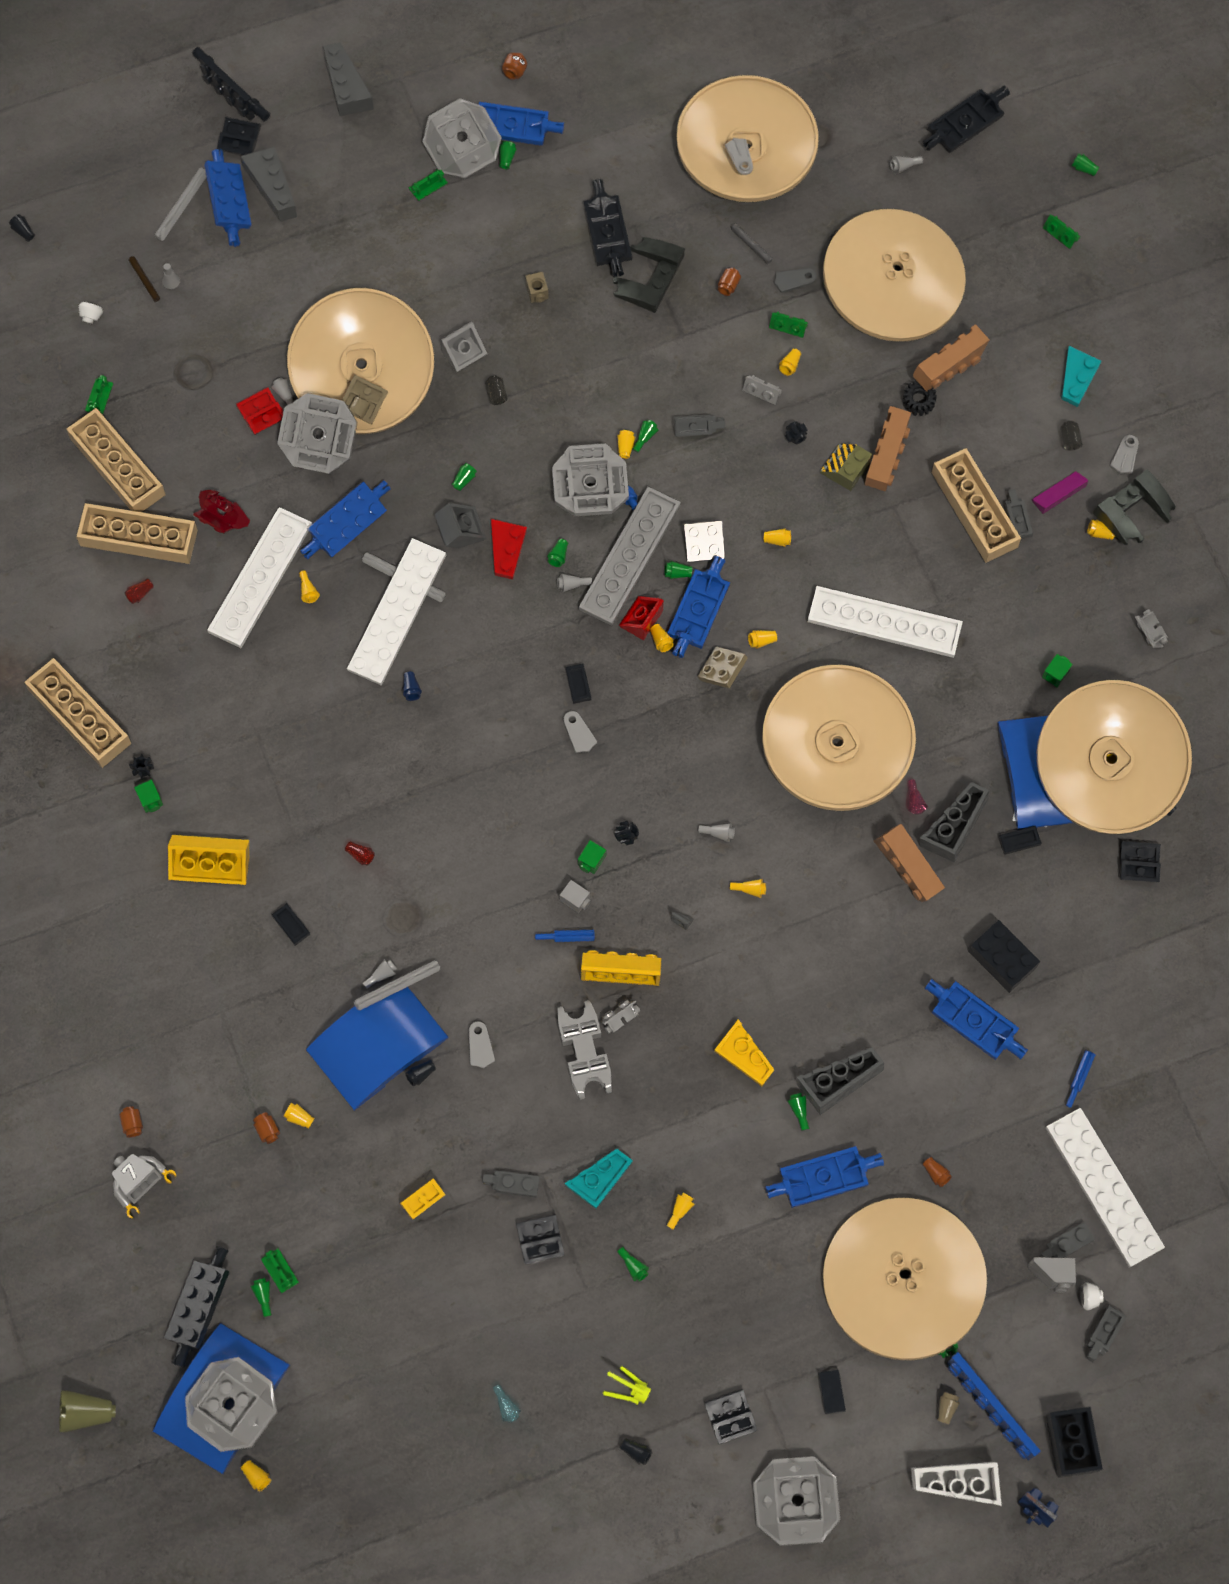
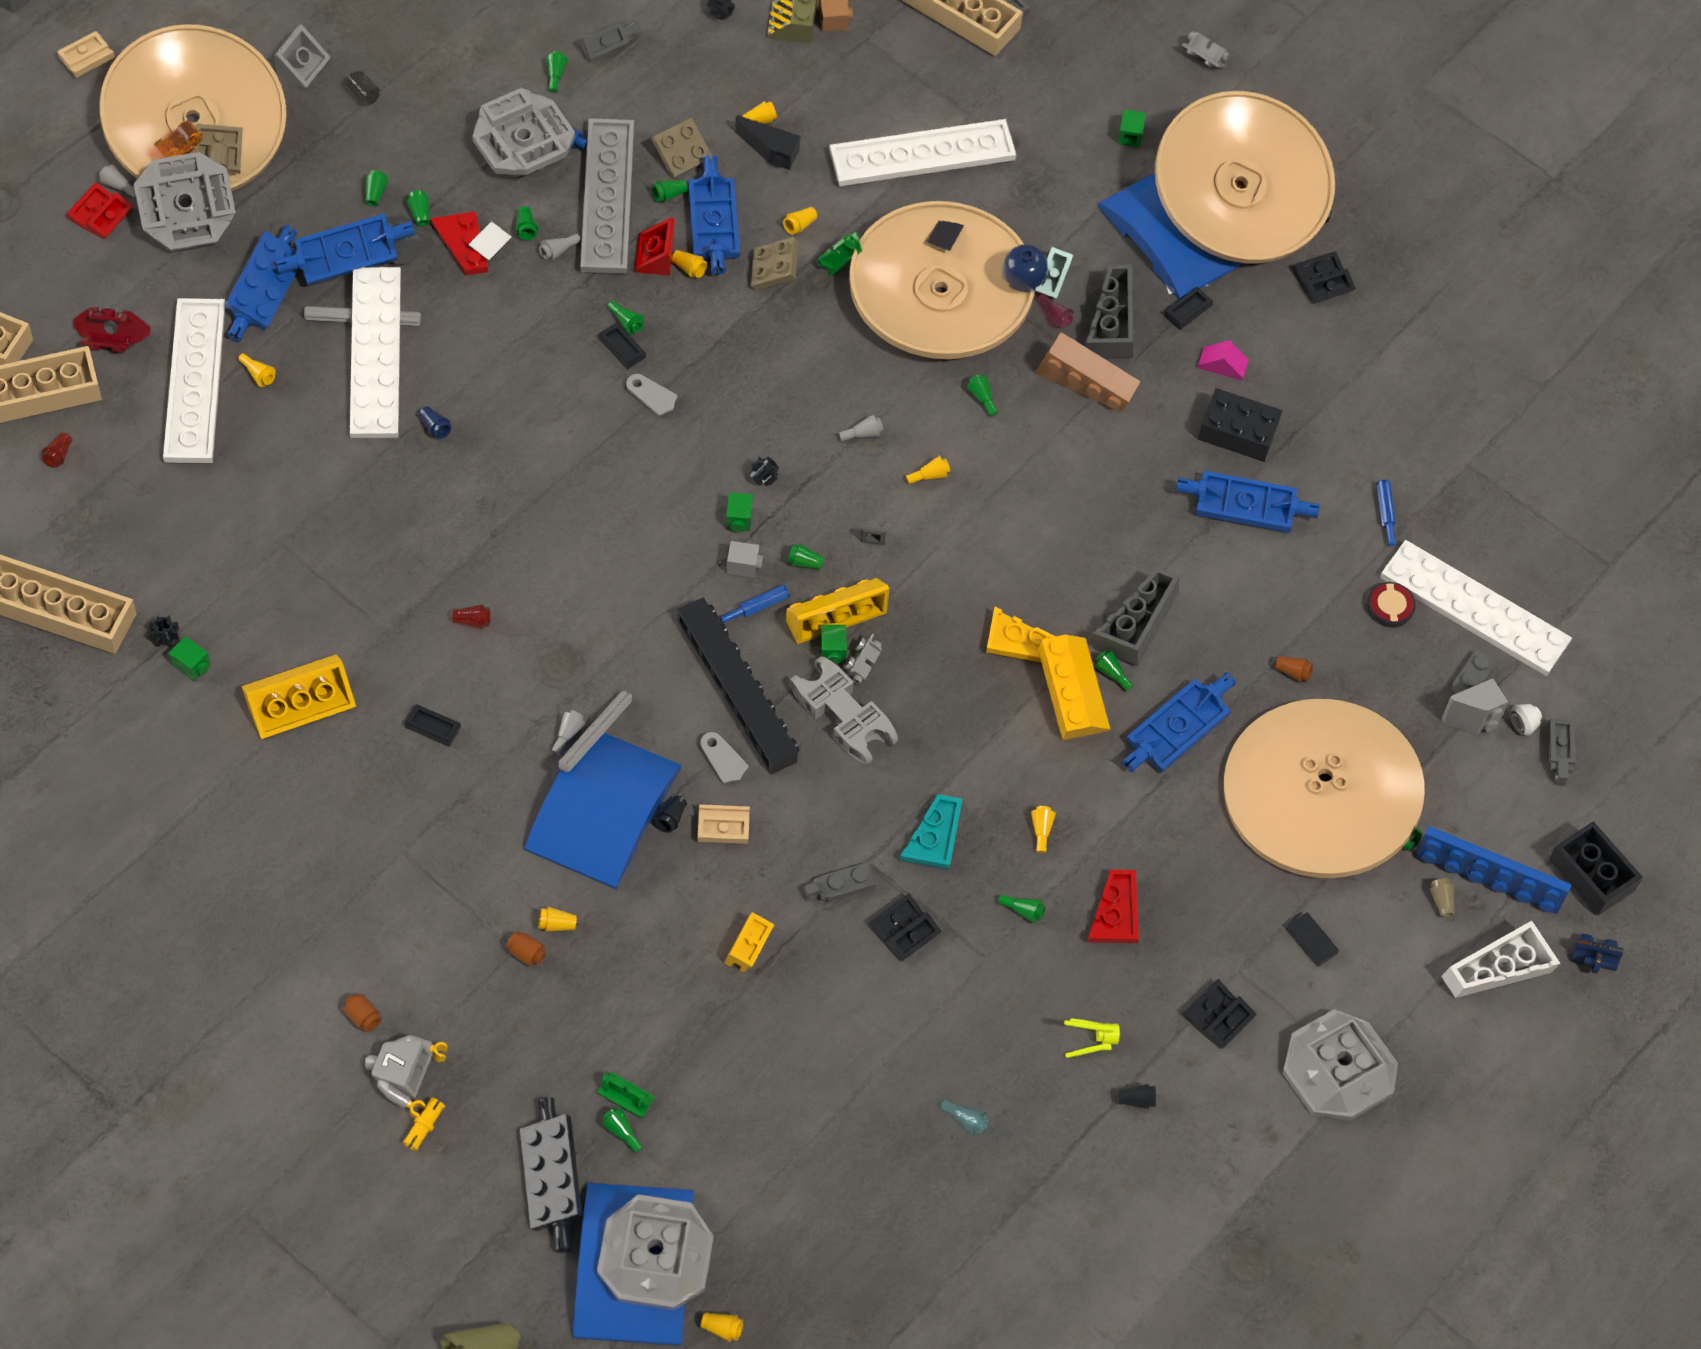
camera: 30 degrees left, 10 degrees down
(131, 1225) = (423, 1124): none -> yellow pin
(312, 278) = (85, 54): none -> tan plate
(335, 385) = (181, 141): none -> clear orange leg
(413, 521) = (346, 249): none -> blue plate
(453, 1098) = (723, 824): none -> tan plate
(487, 506) = (419, 207): none -> green cone
(518, 995) = (738, 686): none -> black brick
(525, 556) = (490, 240): none -> white sticker
(593, 666) = (630, 320): none -> green cone
(604, 994) = (833, 642): none -> green brick
(620, 915) = (804, 557): none -> green cone
(625, 443) = (538, 83): yellow cone -> none
(698, 1302) = (1118, 910): none -> red wing
(762, 1111) = (1073, 686): none -> yellow slope
(775, 567) = (770, 142): none -> black slope
(775, 681) = (842, 253): none -> green hinge
(823, 838) = (981, 390): none -> green cone
(862, 700) = (945, 234): none -> black sticker
(903, 758) = (1025, 268): none -> dark blue cylinder
(930, 766) = (1058, 265): none -> light aqua slope
(1022, 896) = (1224, 359): none -> dark pink slope
(1040, 1154) = (1391, 604): none -> tile

